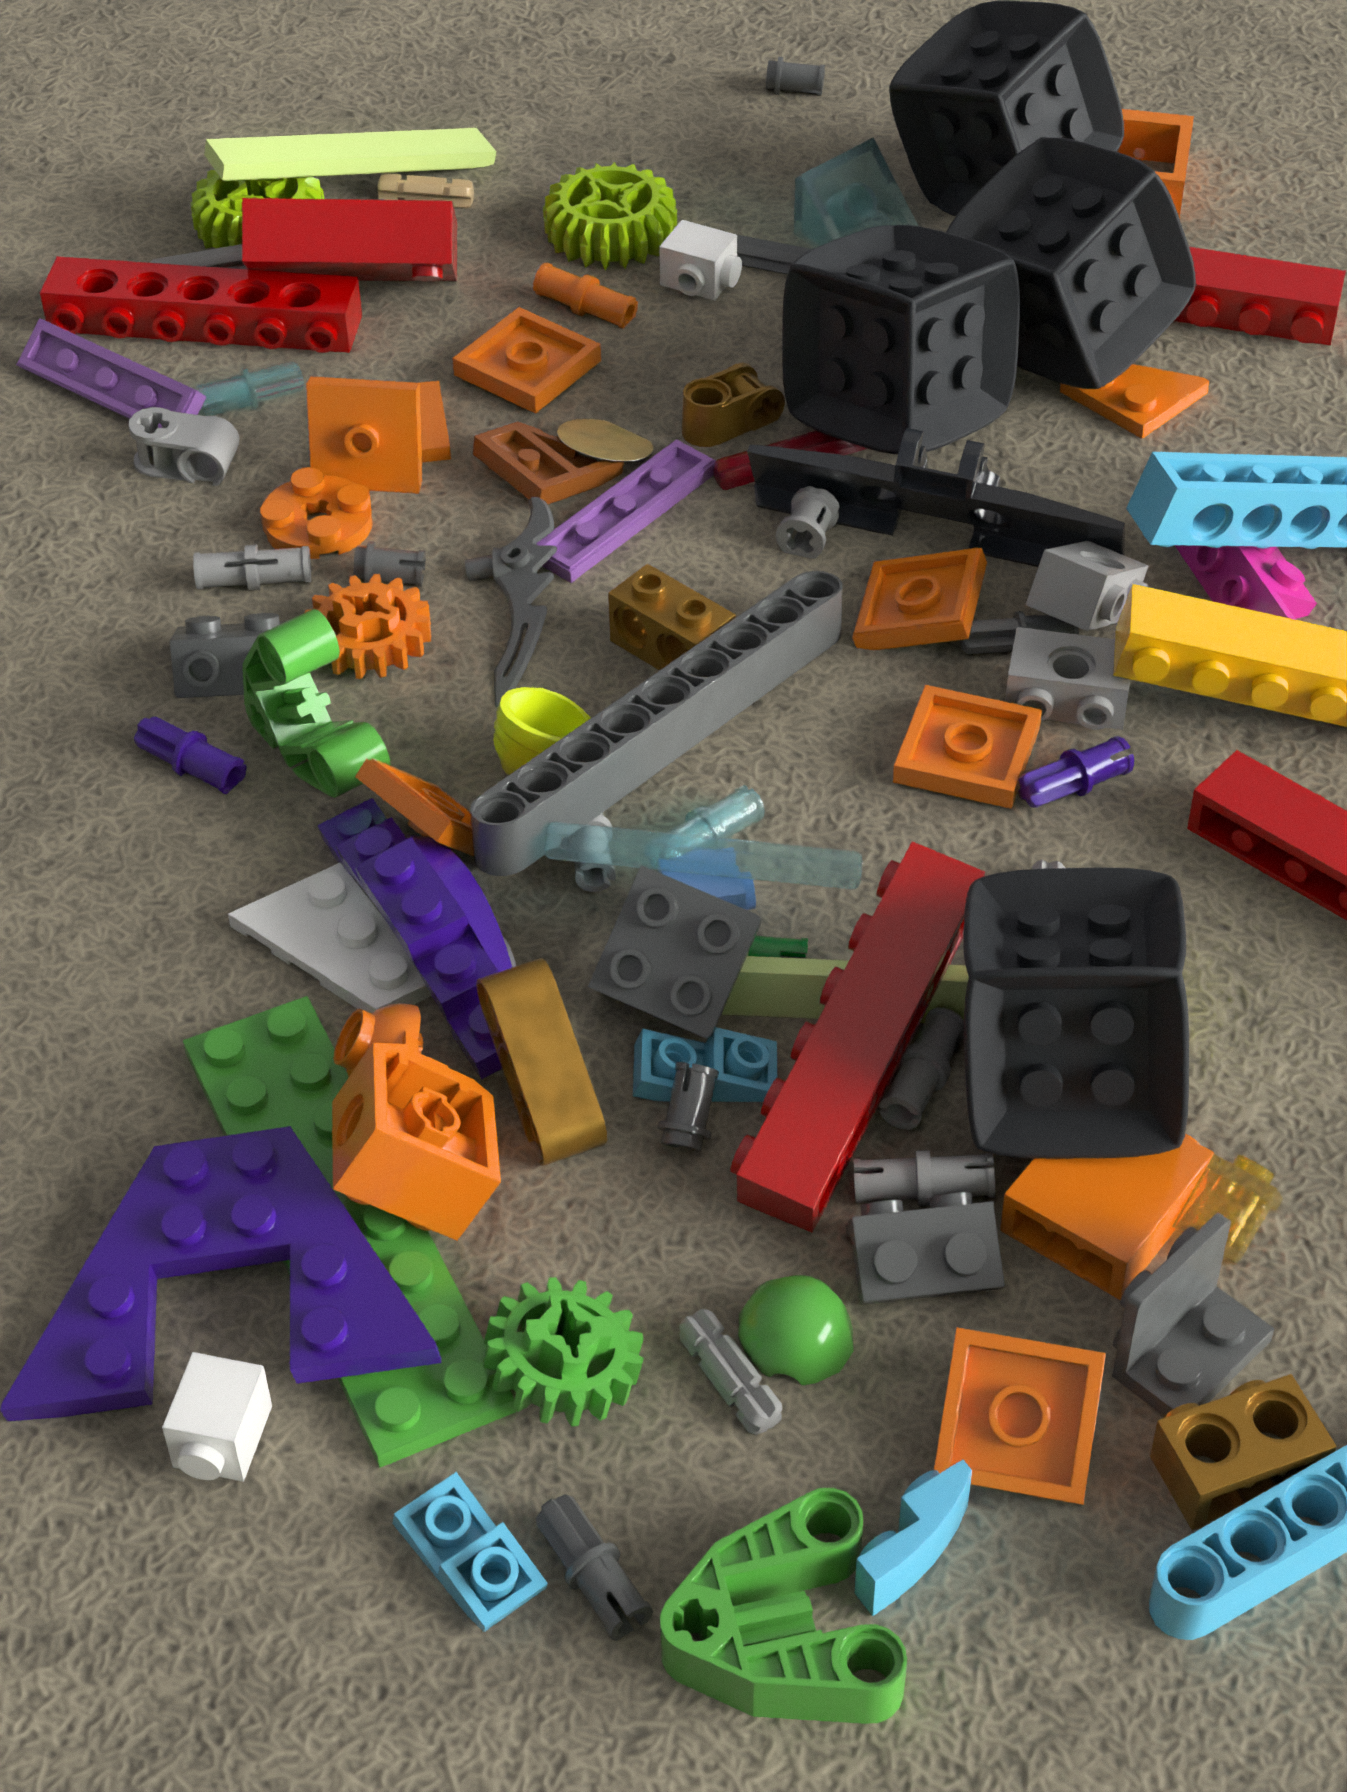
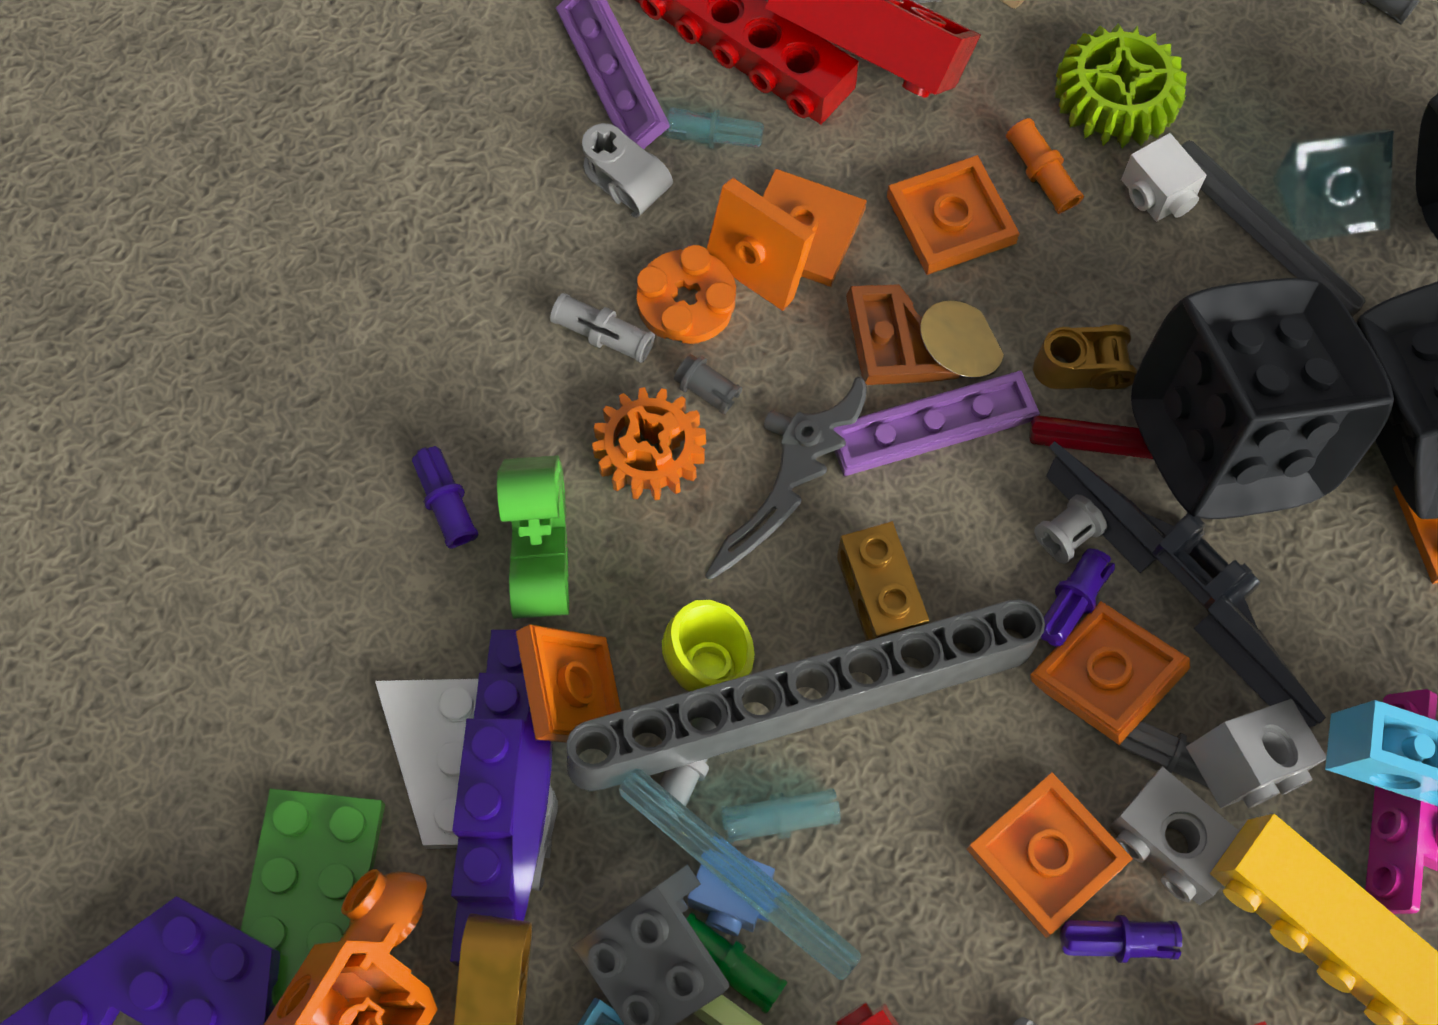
camera: 30 degrees right, 20 degrees up
(211, 654) = (534, 411): dark grey bracket -> none
(850, 562) = (1076, 595): none -> dark purple axle

